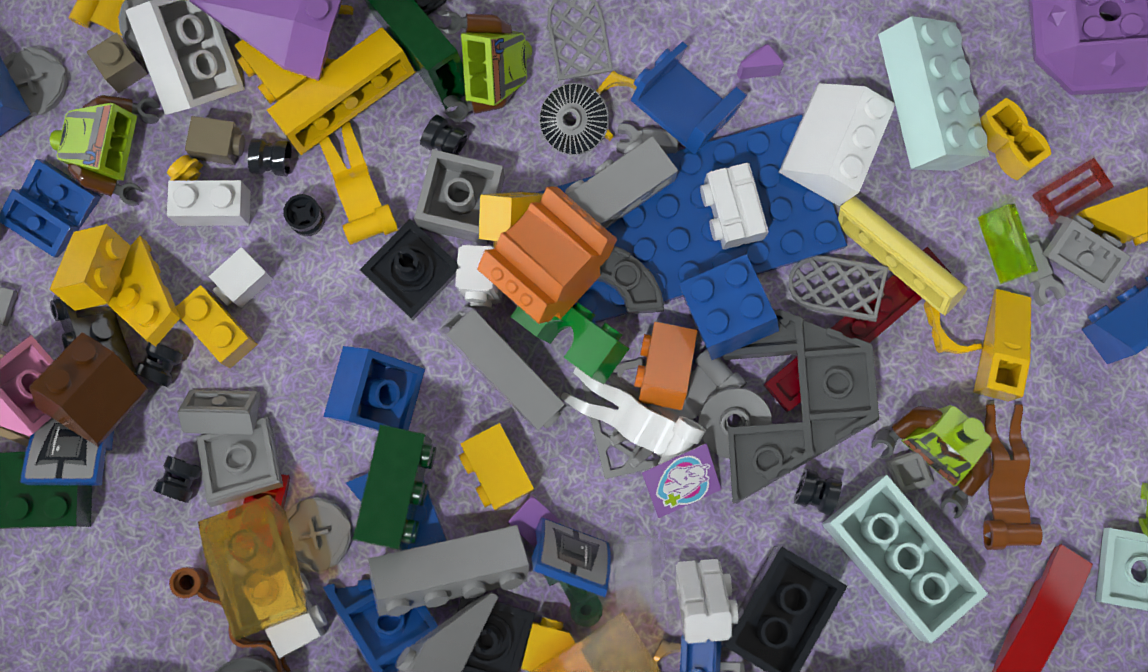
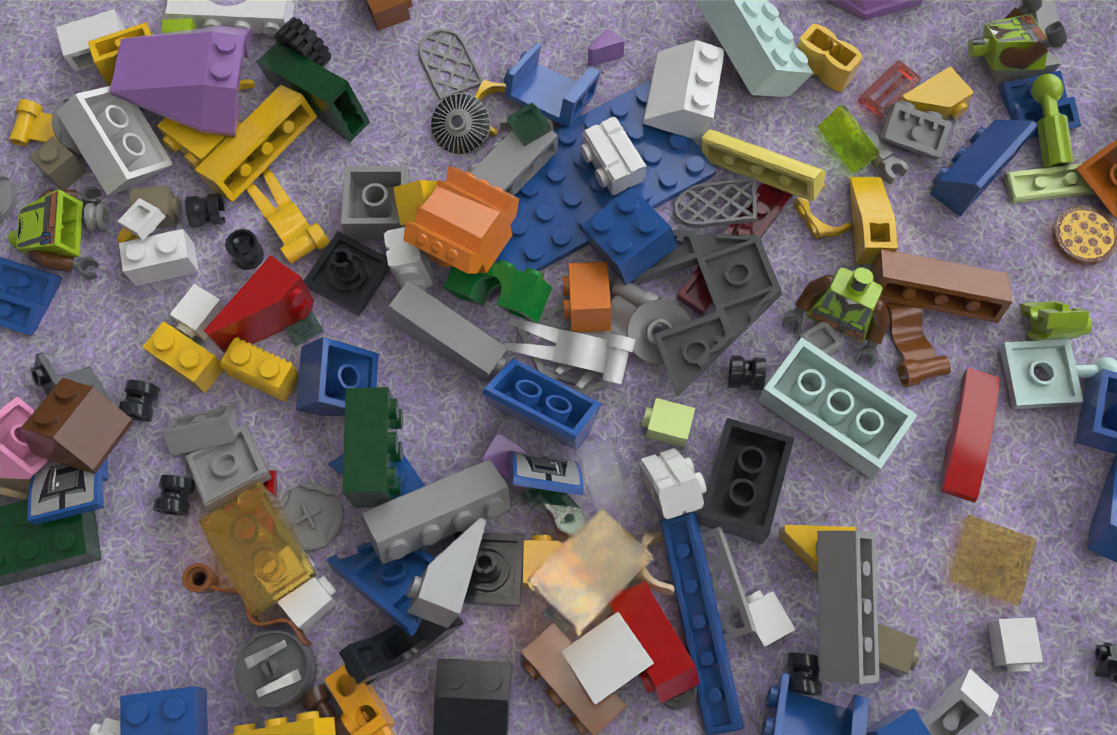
camera: 10 degrees left, 10 degrees down
(90, 267) = (62, 330): yellow brick -> none
(141, 295) = (109, 344): yellow wing -> none
(150, 136) = (97, 216): none -> light grey bush
(197, 160) = (141, 219): none -> white plate
(294, 360) = (260, 369): none -> yellow brick
(313, 291) = (262, 306): none -> red slope
(349, 316) = (304, 329): none -> tile
(444, 138) = (347, 156): black wheel -> none
(491, 62) = (380, 88): torso -> none
(496, 467) = (460, 417): yellow brick -> none
(588, 477) = (542, 403): none -> blue slope
(632, 282) = (541, 237): dark grey tile -> none
(648, 151) = (528, 124): none -> clear green tile
(681, 480) = (626, 389): sticker -> none
(718, 527) = (668, 422): none -> yellowish green brick
(1059, 447) = (942, 285): none -> brick

